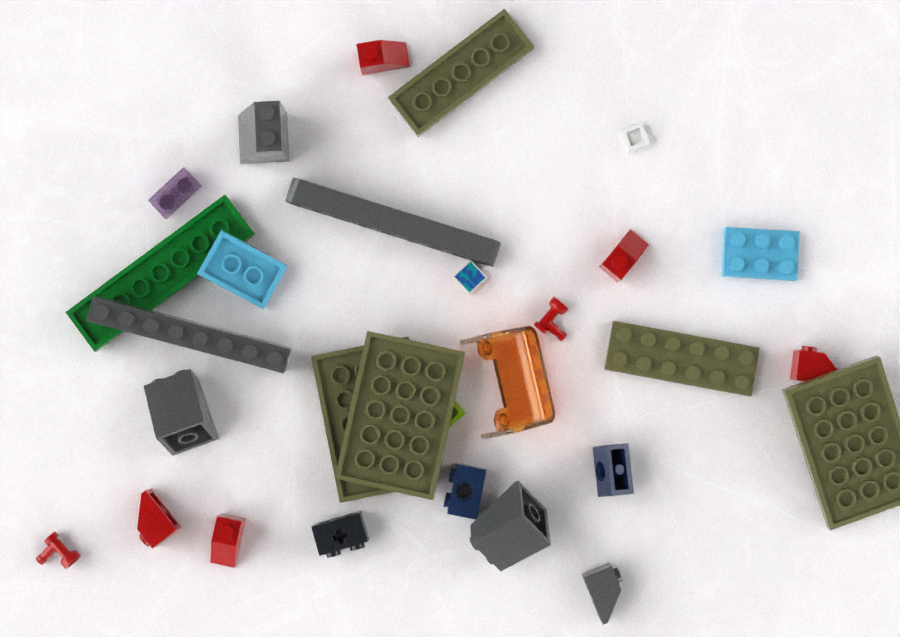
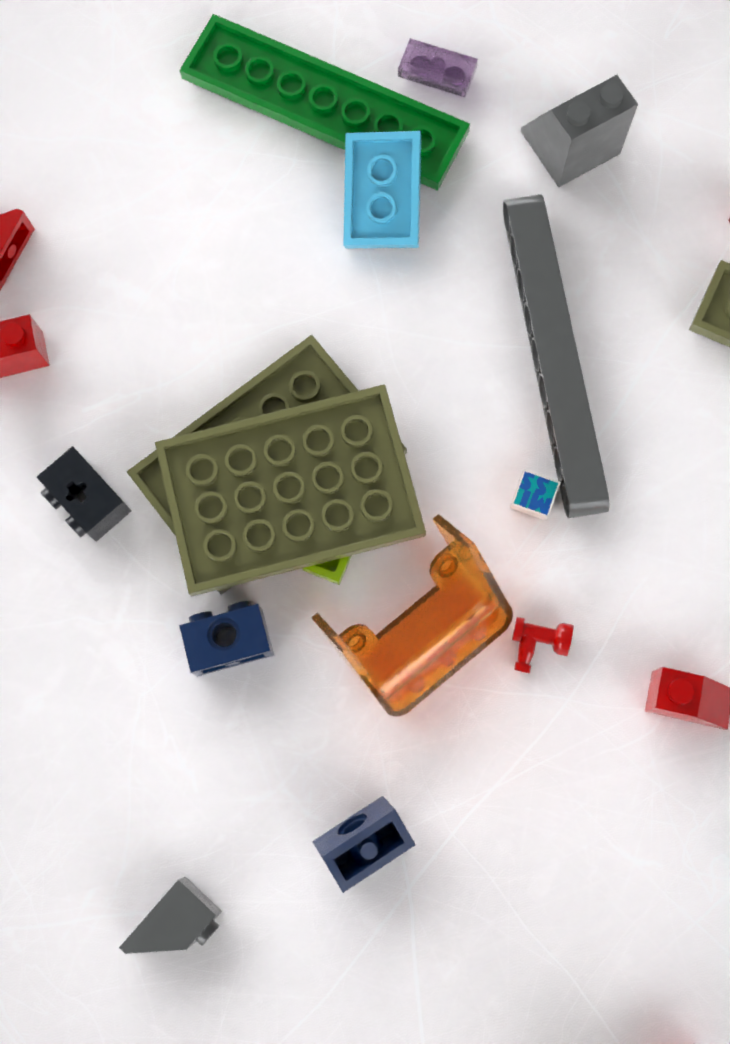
camera: 65 degrees right, 10 degrees down
(180, 412) = (149, 208): dark grey slope -> none
(188, 334) = (260, 167): dark grey brick -> none
(511, 528) = (202, 730): dark grey slope -> none
(681, 358) = (587, 871): olive plate -> none

